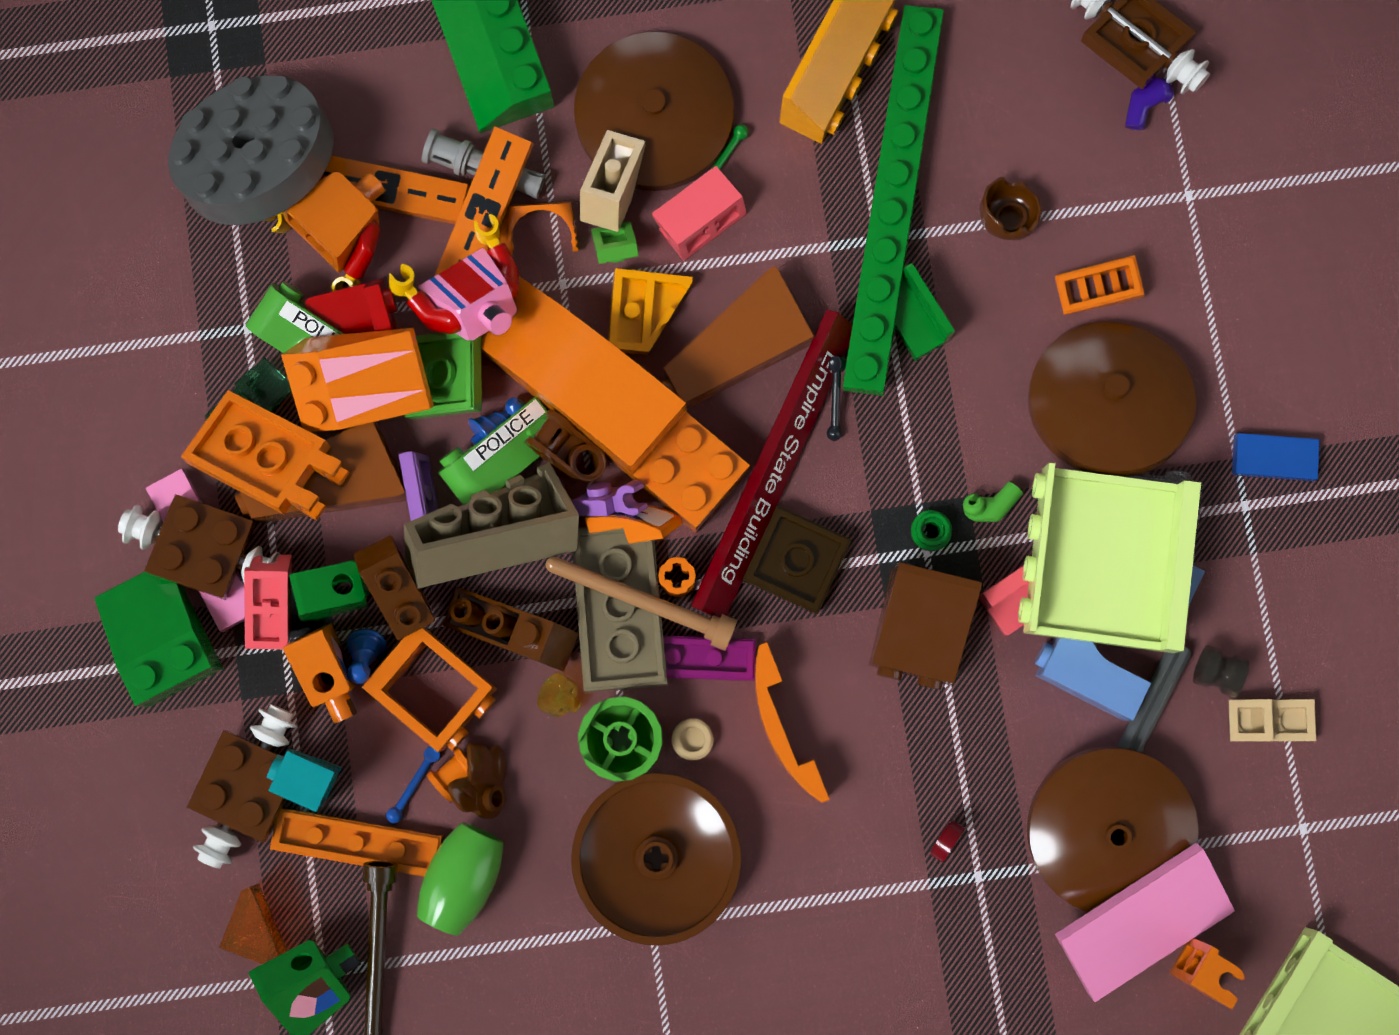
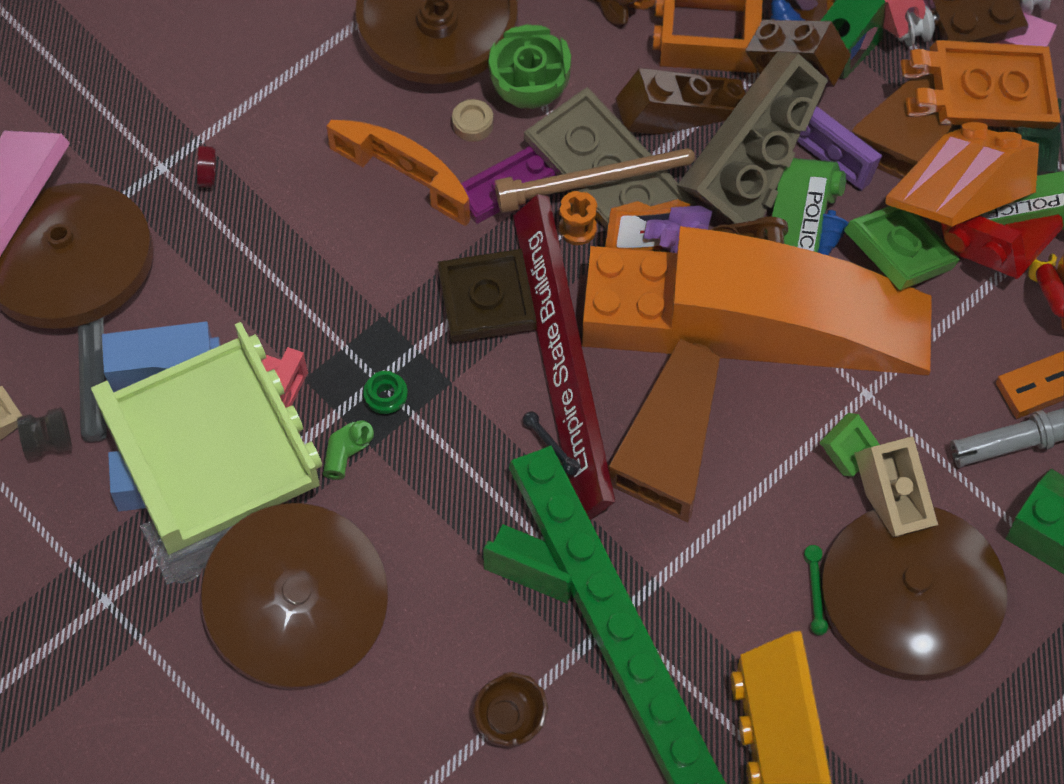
camera: 145 degrees right, 20 degrees down
(470, 294) = (932, 301): torso -> none
(488, 194) = (985, 394): orange tile -> none
(515, 212) = (949, 427): orange helmet -> none
(558, 696) = (604, 78): clear yellow tile -> none
(642, 307) = (781, 408): light orange wing -> none
(700, 213) = (796, 520): coral hinge -> none
(924, 625) = (341, 307): reddish brown slope -> none
(1128, 264) = (351, 728): orange slope -> none
(1275, 457) = (101, 657): blue tile -> none

